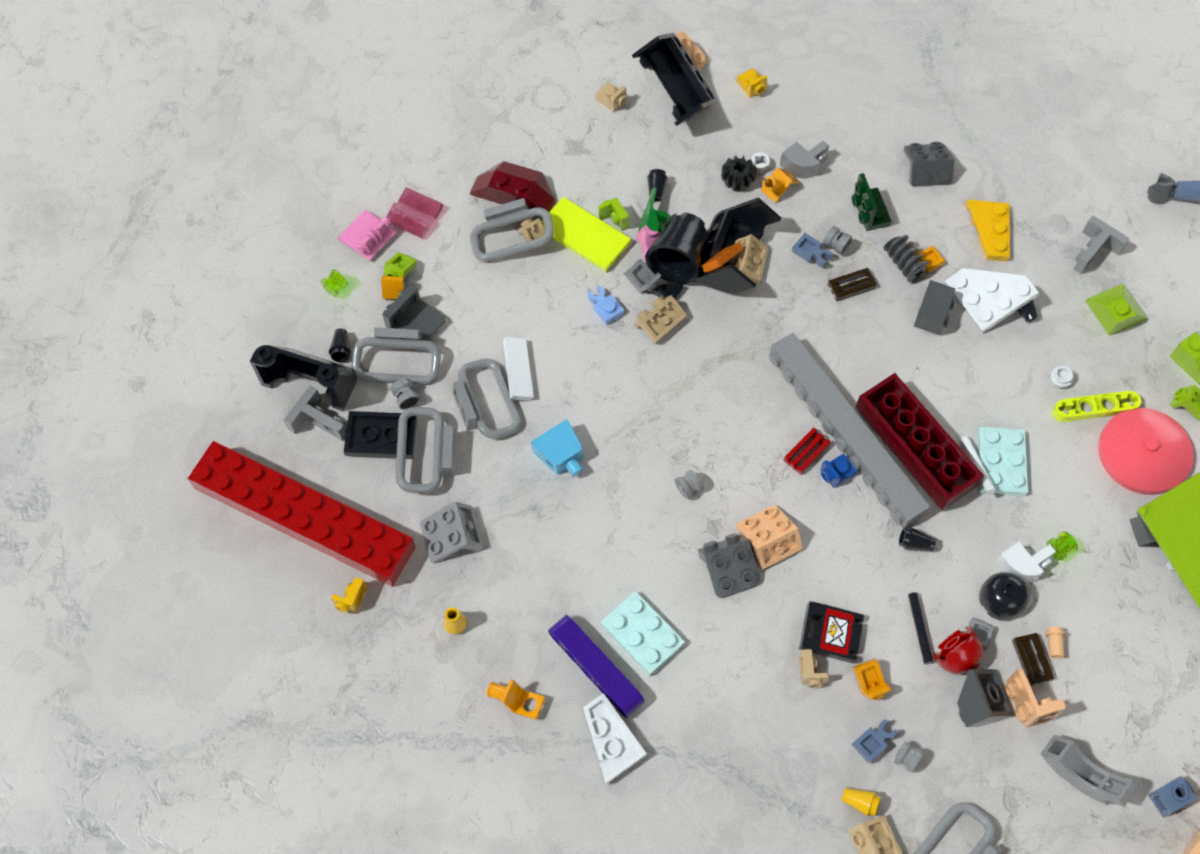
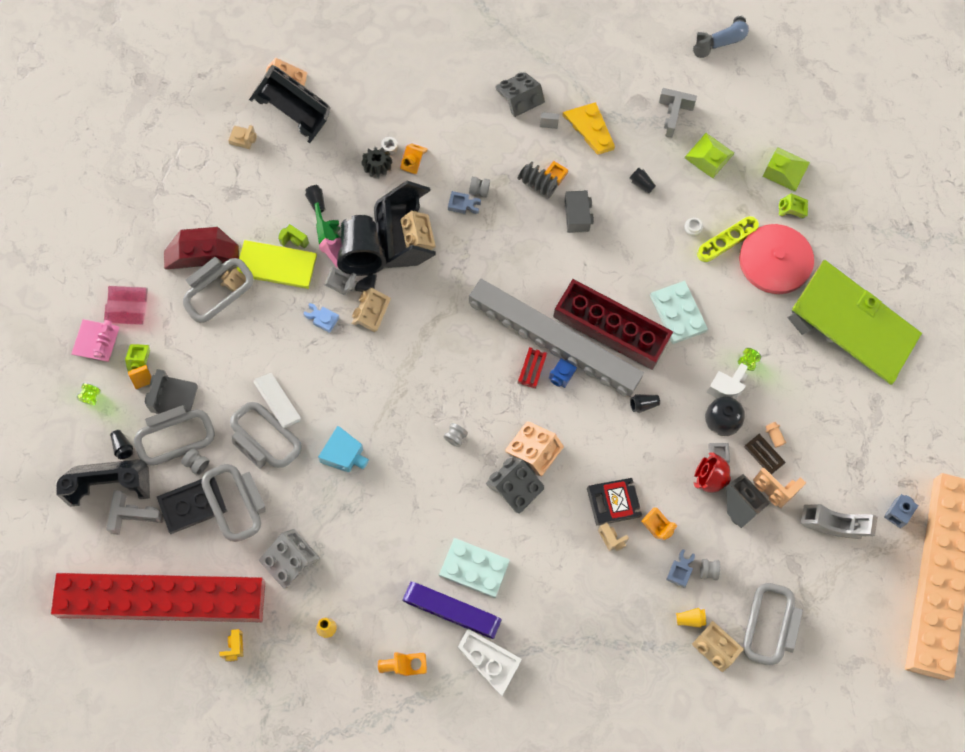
camera: 30 degrees left, 5 degrees up
(722, 257) = (398, 240): orange tile -> none
(752, 82) = (351, 79): yellow bracket -> none
(804, 163) = (423, 132): light grey brick -> none
(852, 288) = (496, 228): dark brown tile -> none
(870, 205) = (492, 147): dark green bracket -> none
(920, 628) = (676, 468): black bar -> none
(947, 202) = (549, 120): none -> light grey tile
(972, 454) = (658, 319): white bar -> none
(991, 295) = (614, 183): white plate -> none

